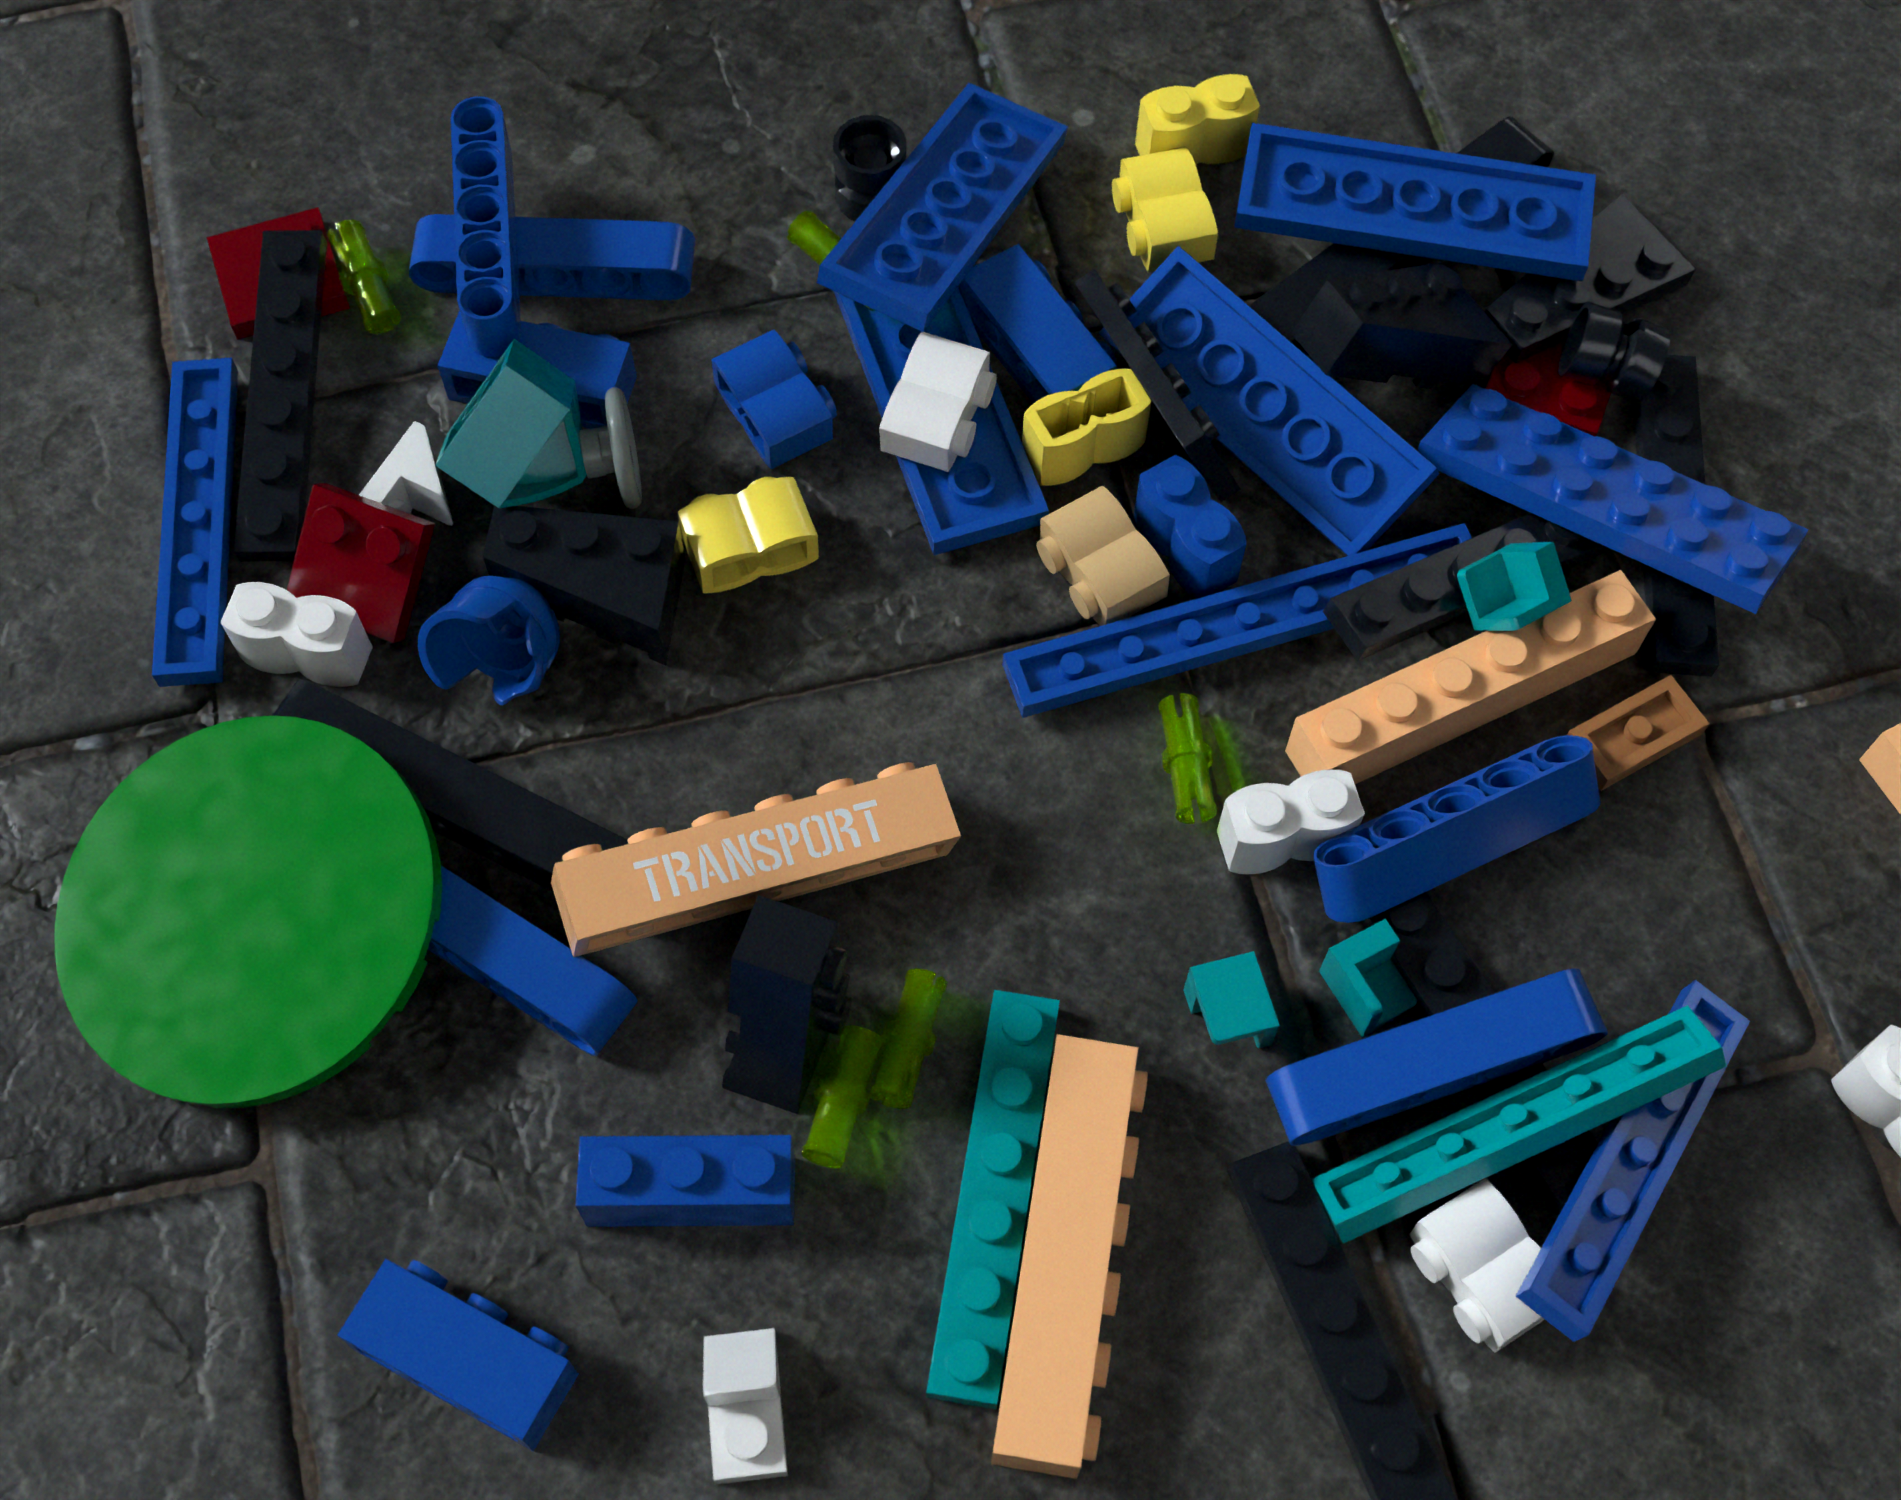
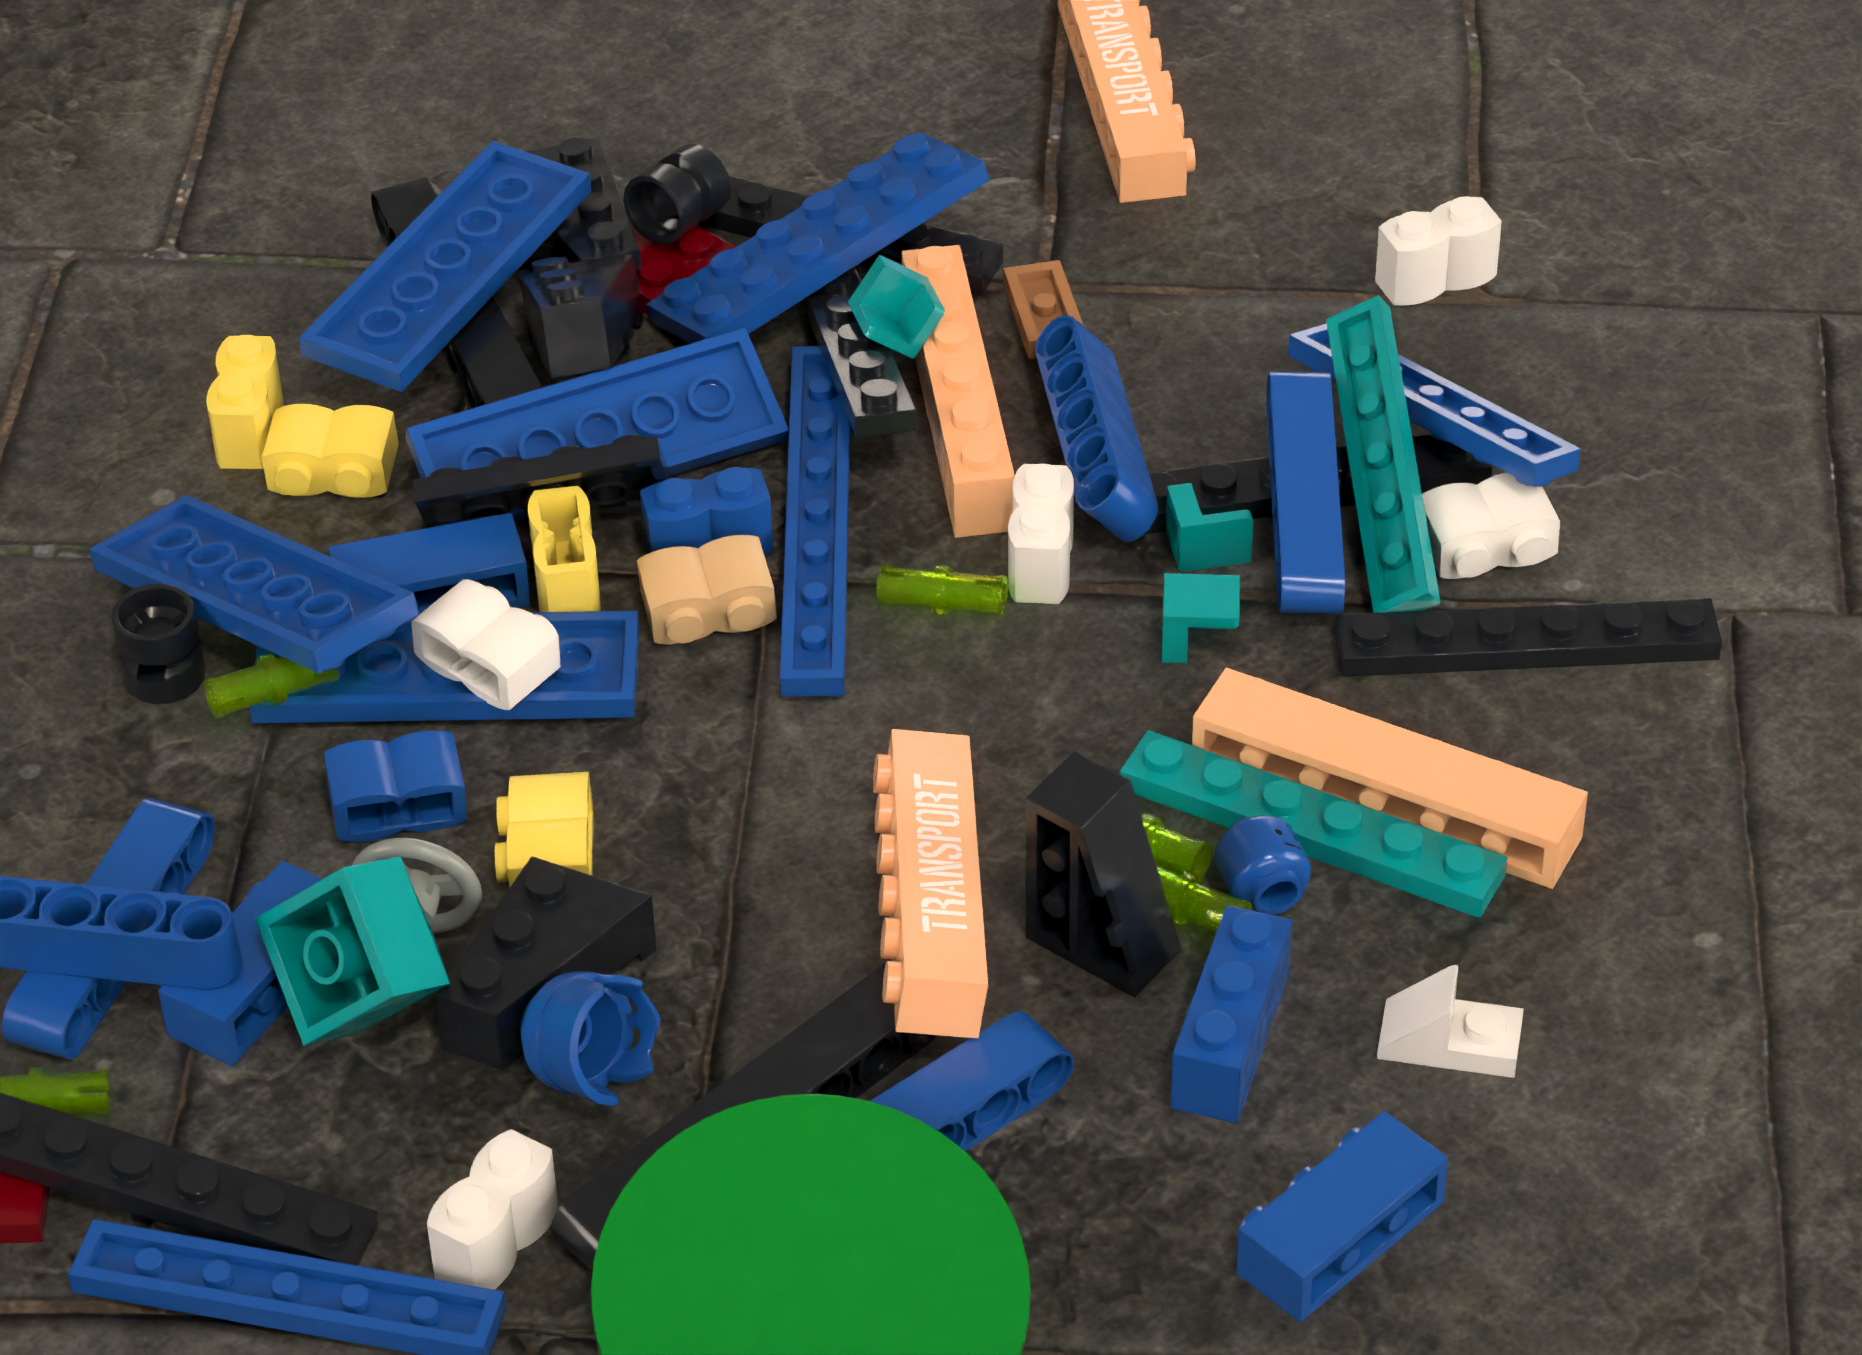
camera: 70 degrees left, 20 degrees down
(362, 557) = (424, 1131): dark red plate -> none
(411, 478) = (350, 1095): white slope -> none
(895, 1158) = (1263, 863): none -> blue head

